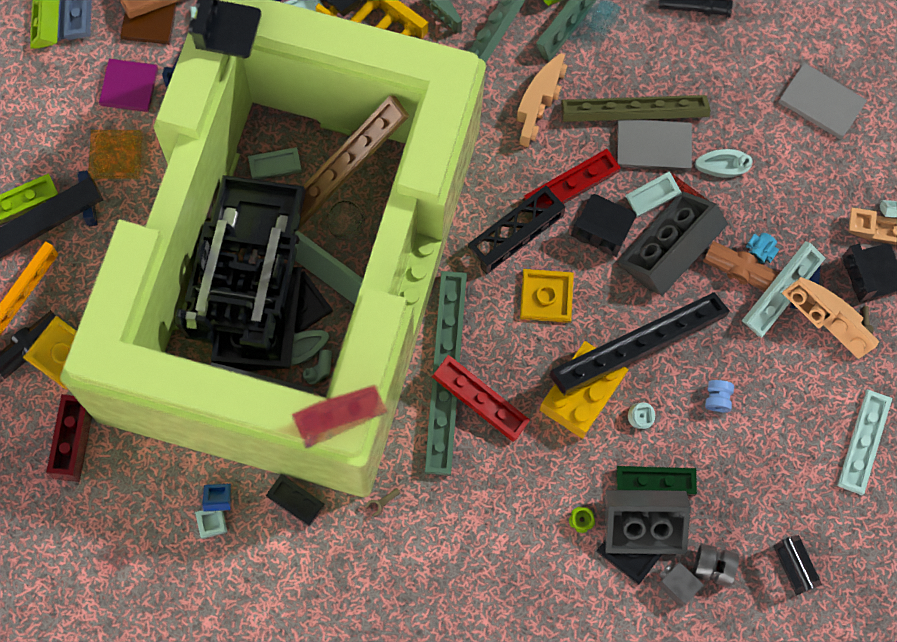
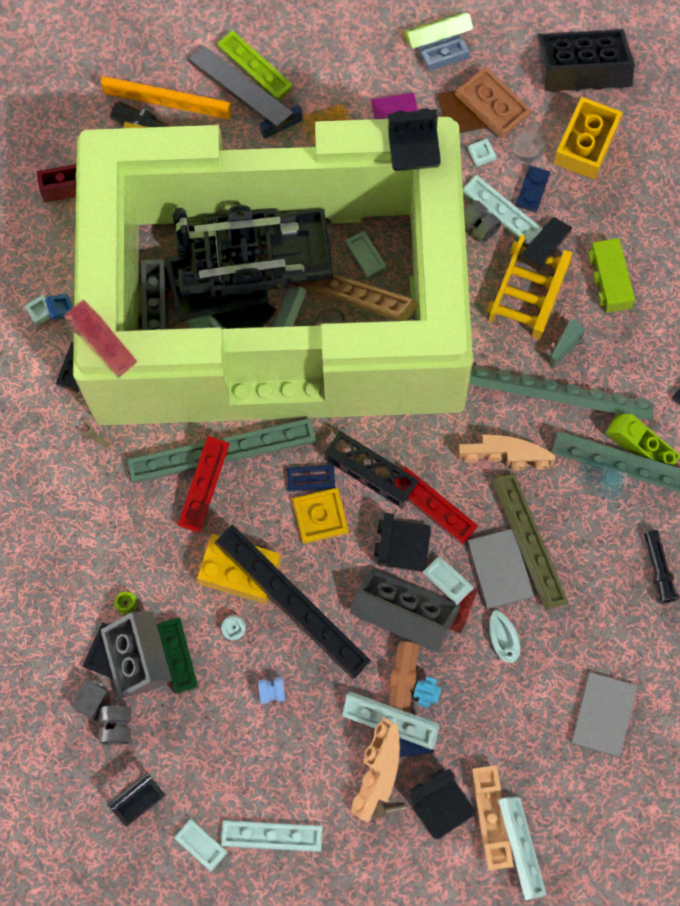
camera: 80 degrees right, 0 degrees up
(498, 312) = (309, 487): none -> dark blue tile
(857, 514) = (200, 845): none -> light aqua tile

